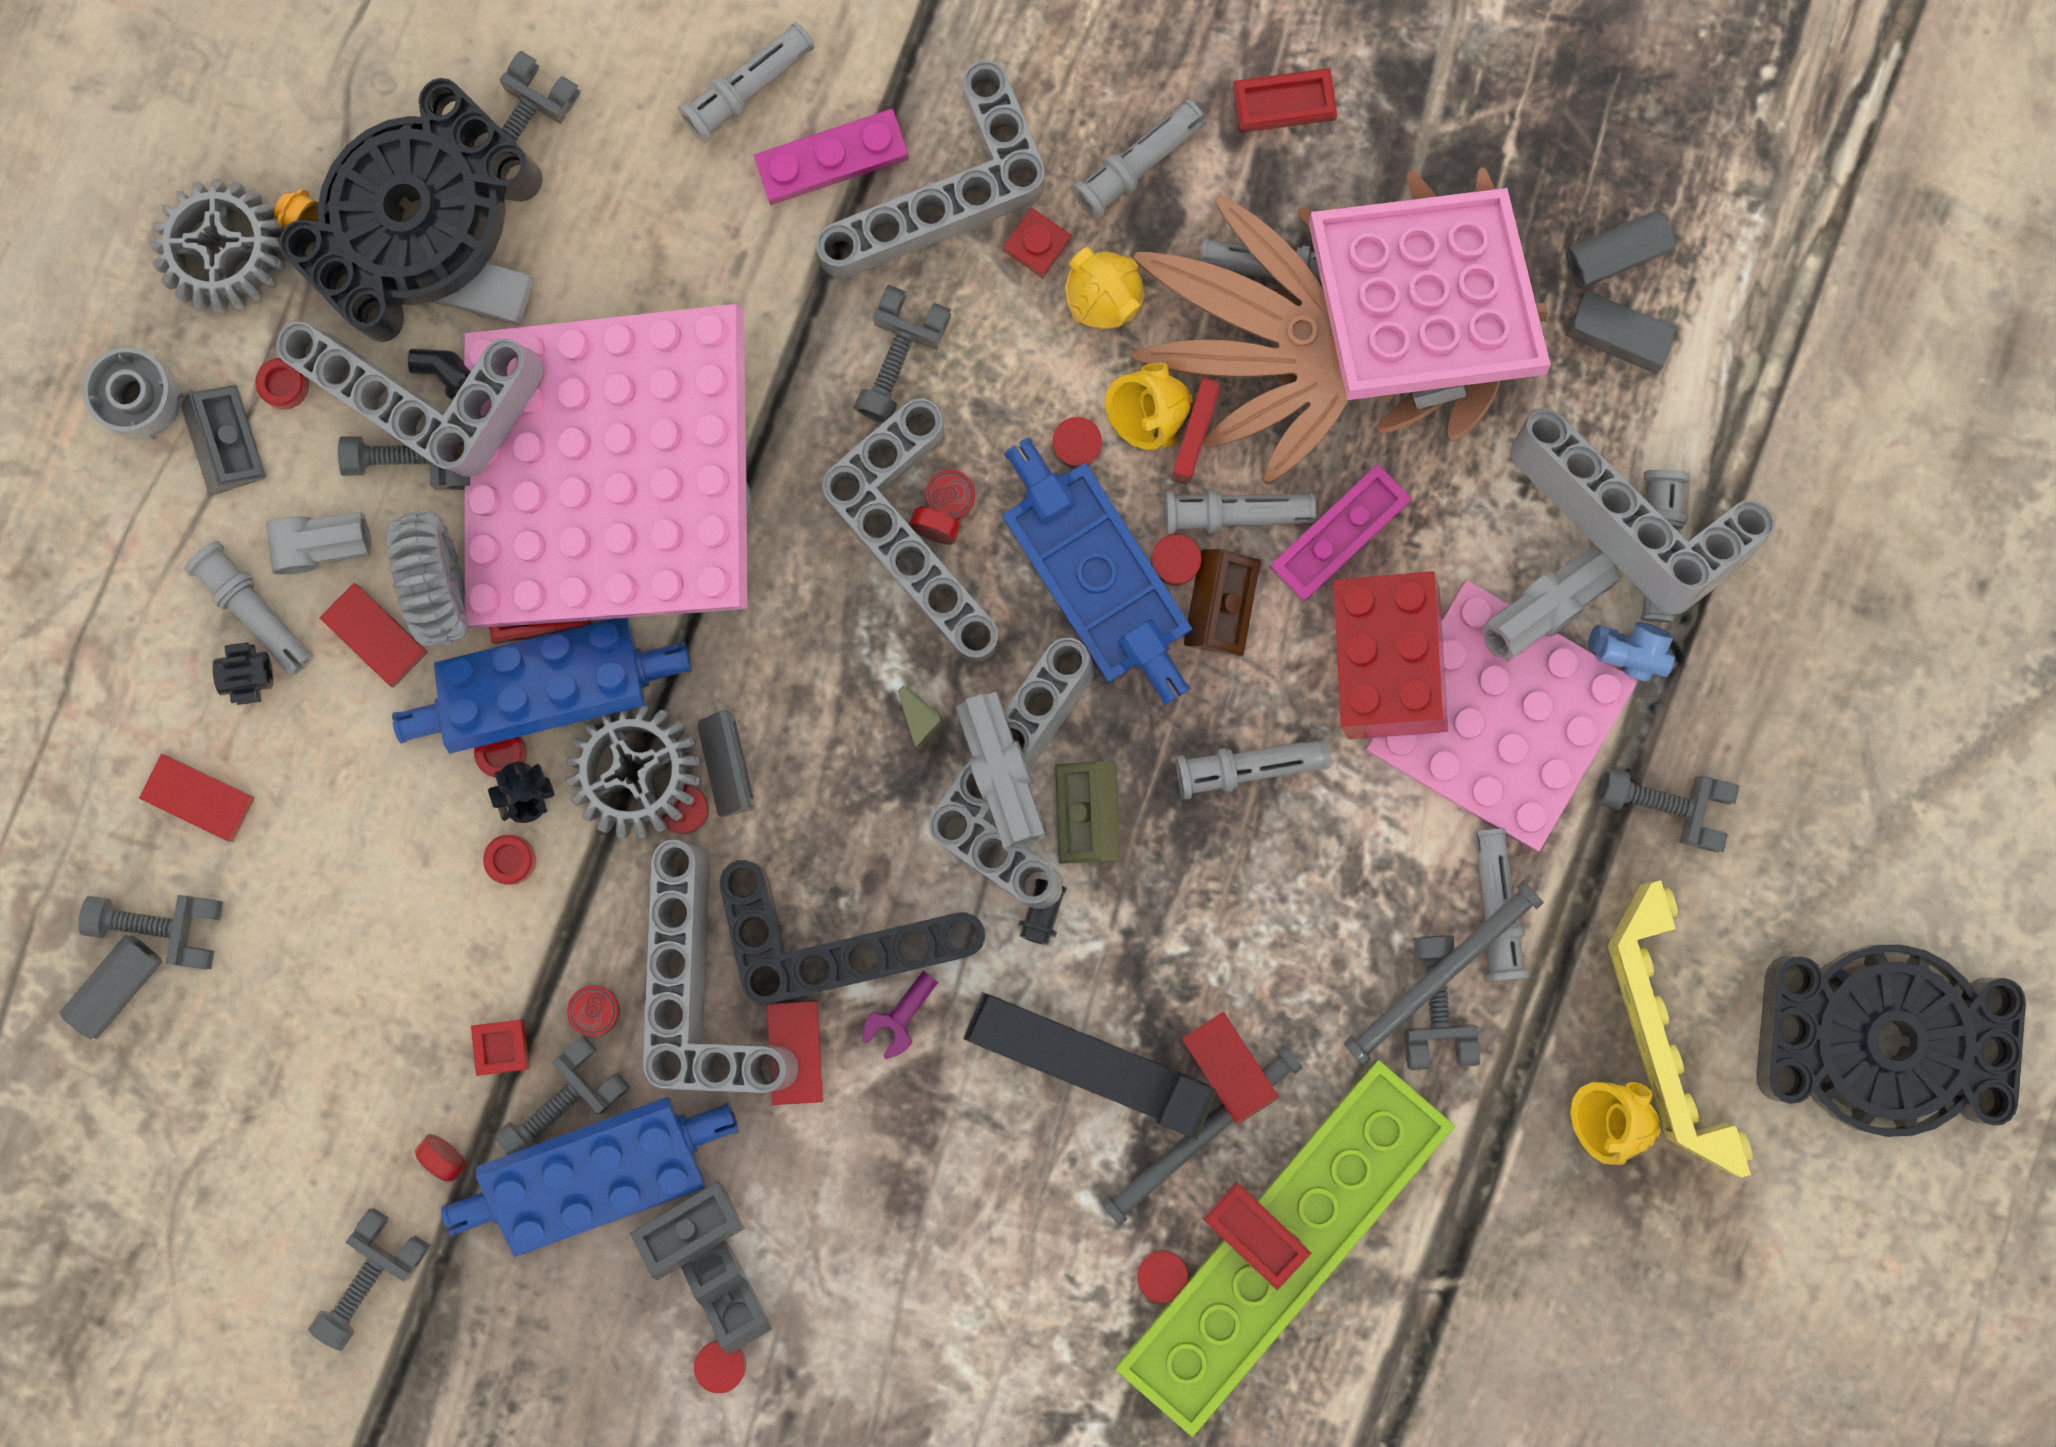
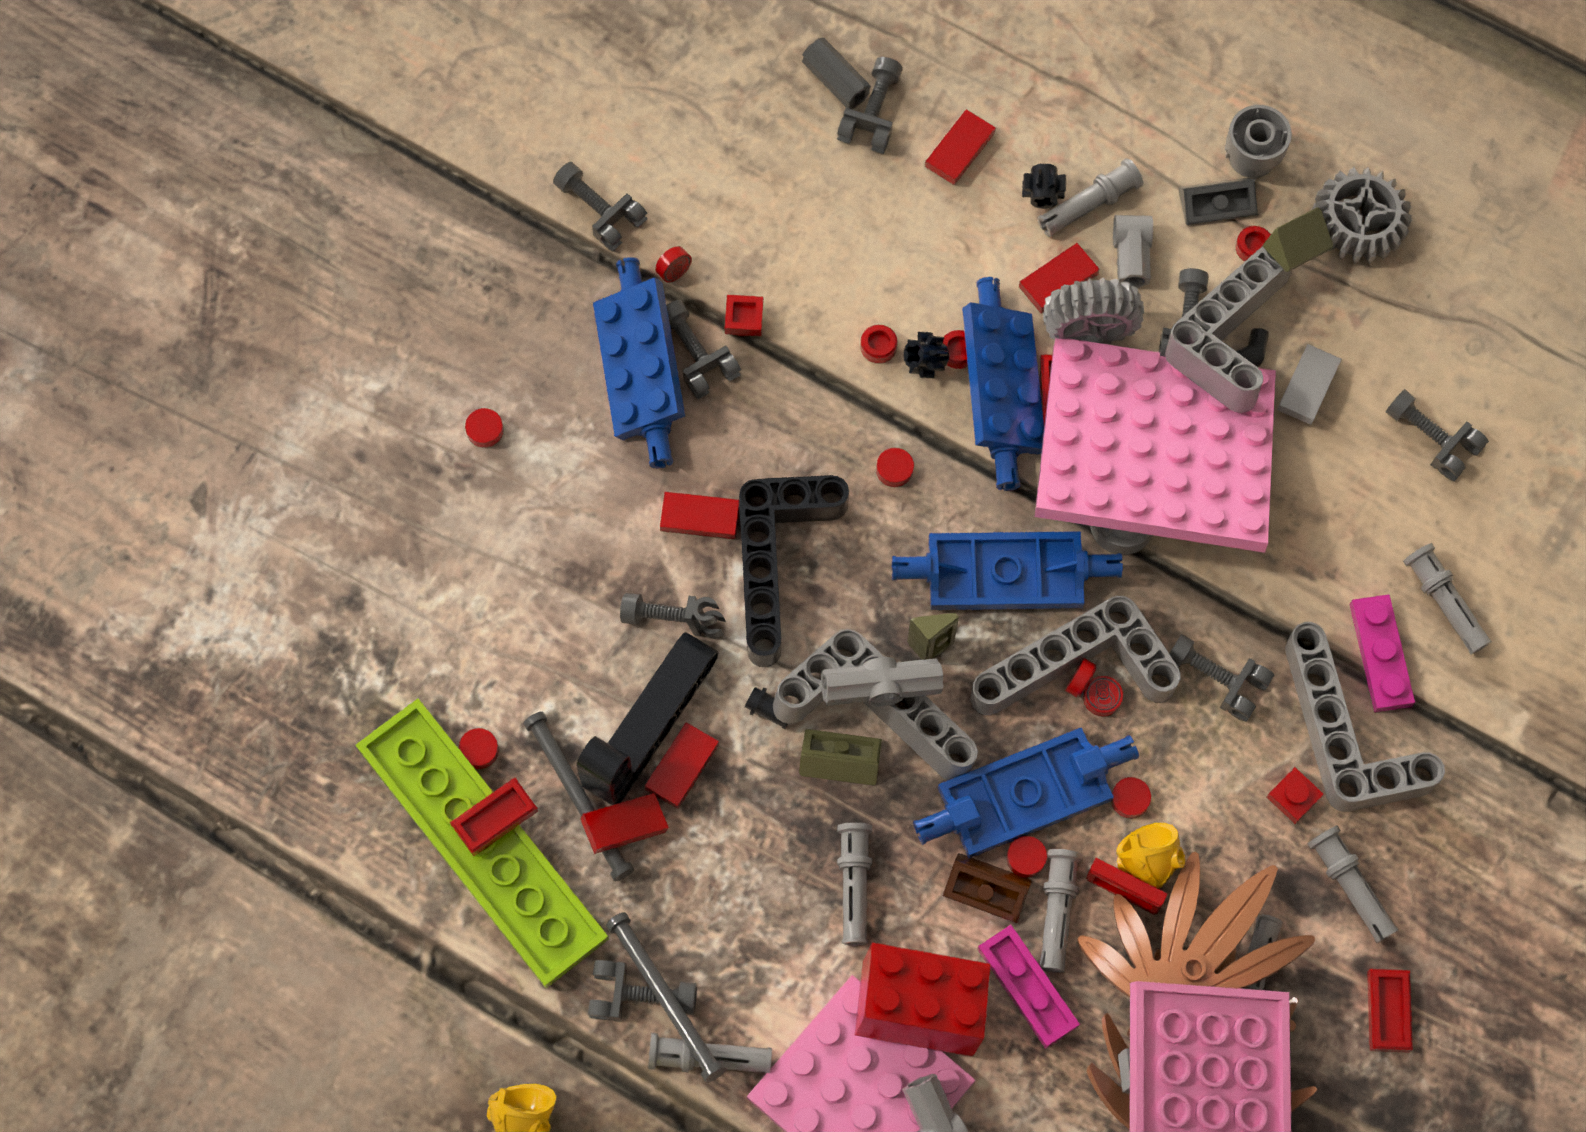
camera: 100 degrees right, 15 degrees down
(281, 318) = (1299, 240): none -> olive slope
(295, 207) = (1380, 271): light orange plate -> none
(447, 238) = (1342, 312): black piece -> none
(593, 1010) = (758, 383): red tile -> none
(611, 780) = (902, 445): light grey gear -> none
(687, 1231) = (586, 419): dark grey plate -> none
(689, 988) = (762, 447): light grey beam -> none
(726, 764) = (923, 503): dark grey slope -> none
(726, 1297) = (532, 440): dark grey slope -> none
(805, 641) = (1006, 570): none -> blue plate
(901, 1015) = (709, 589): magenta bar -> none
(942, 1031) = (634, 609): none -> dark grey bar
(1103, 289) = (1250, 837): yellow helmet -> none
(1137, 1011) = (681, 765): none -> red tile

